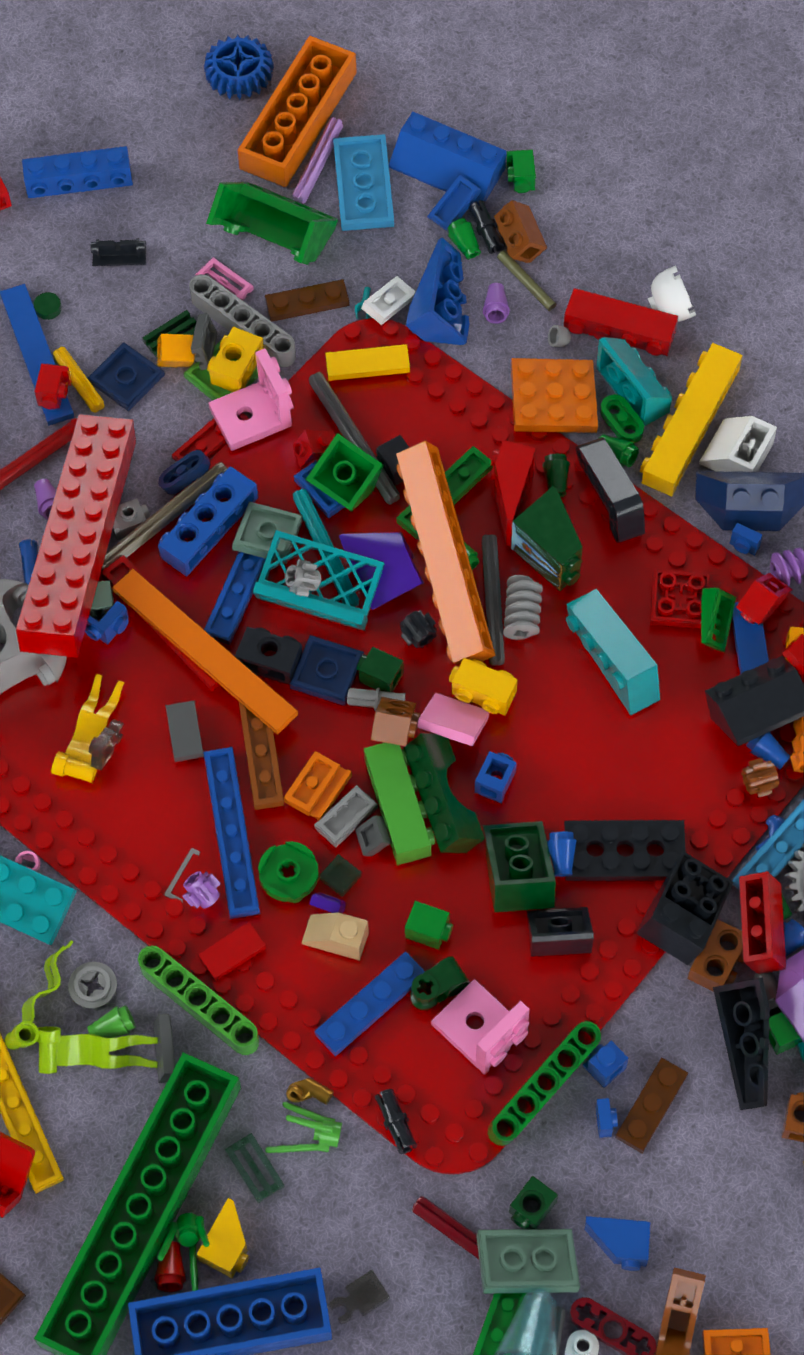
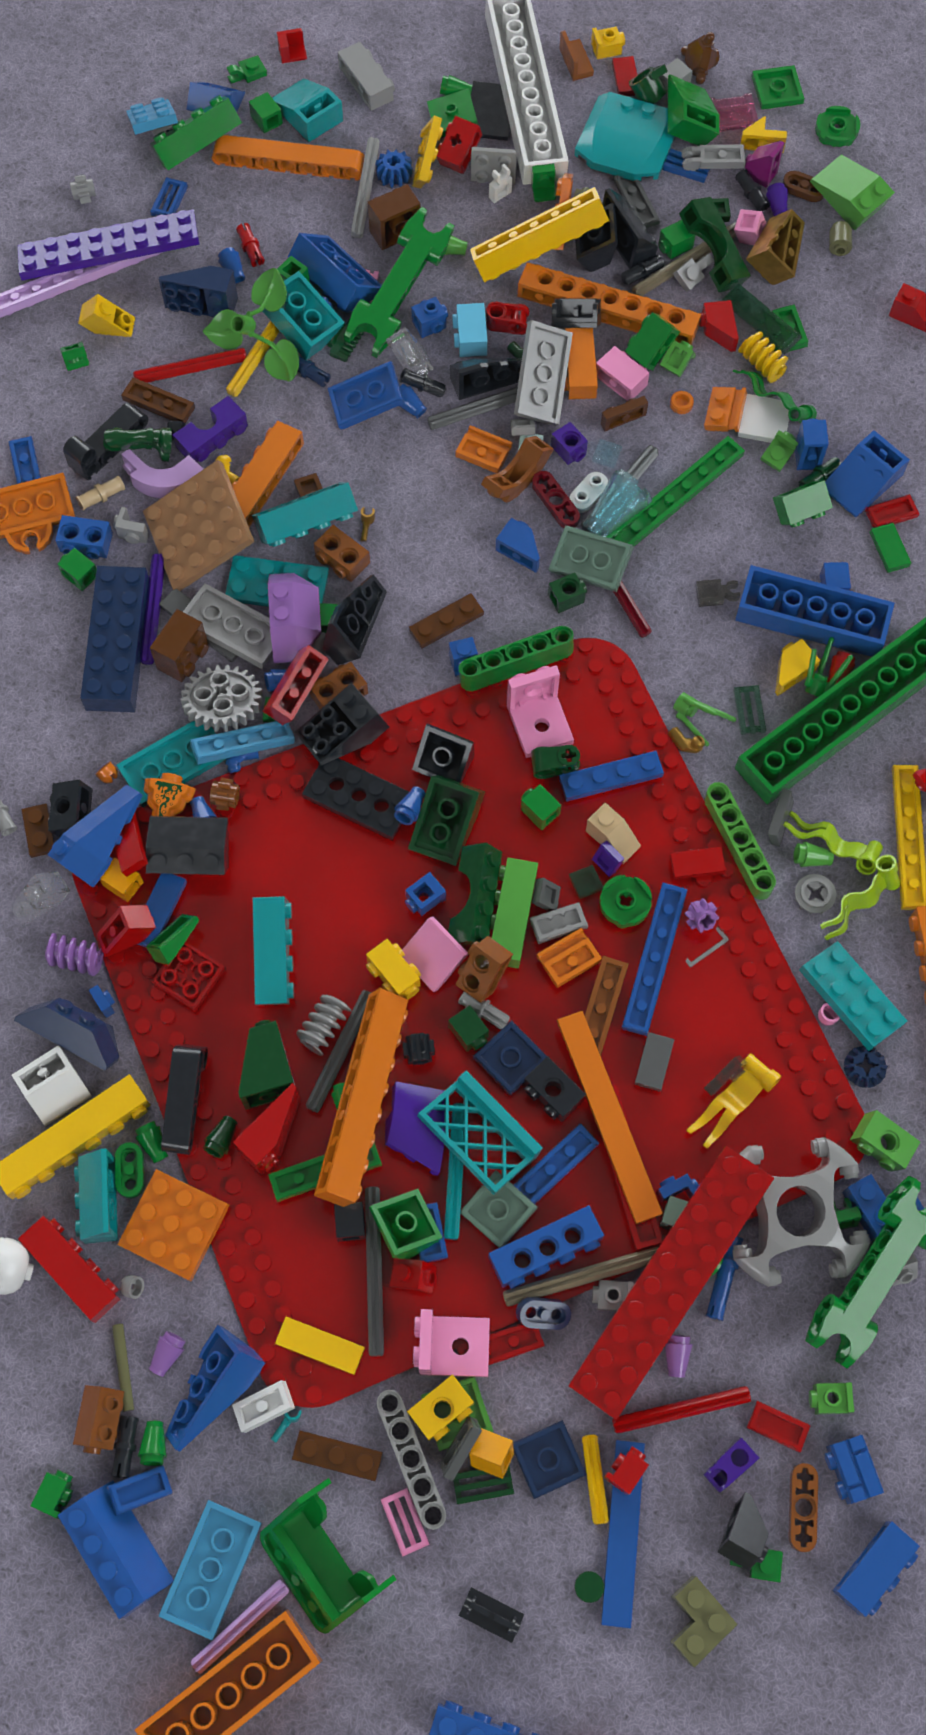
camera: 155 degrees left, 5 degrees up
(302, 578) = (496, 1129): light grey gear -> none
(396, 1121) = (635, 684): black pin -> none
(605, 1117) = (485, 622): blue plate -> none

